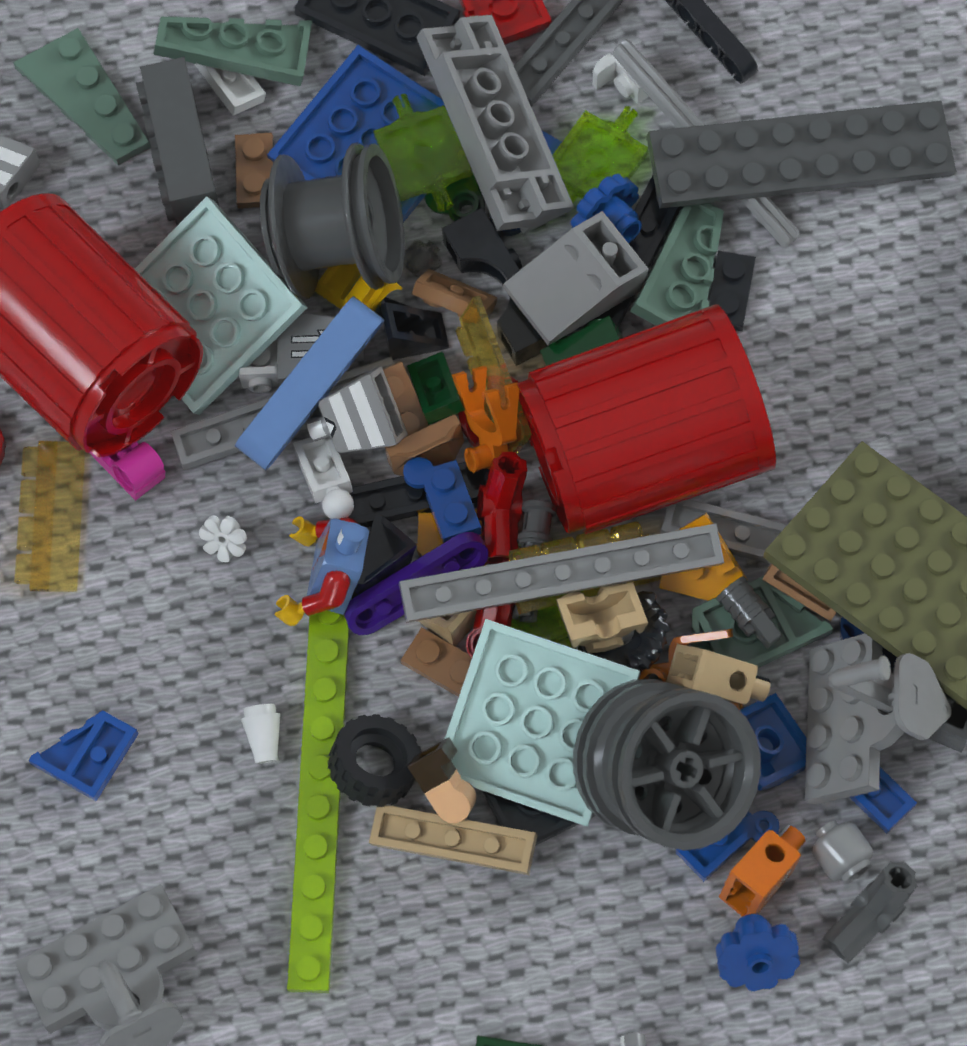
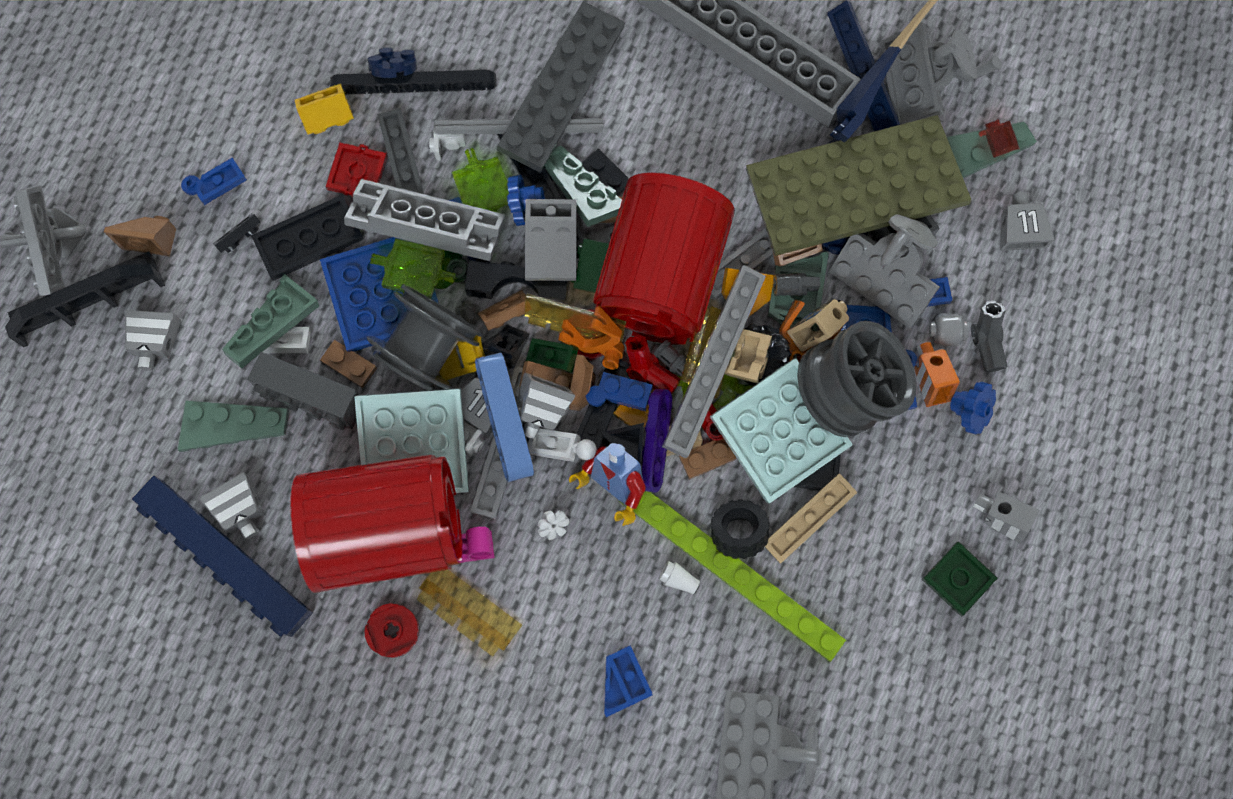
camera: 60 degrees left, 5 degrees up
(442, 783) = (775, 501): leg -> none

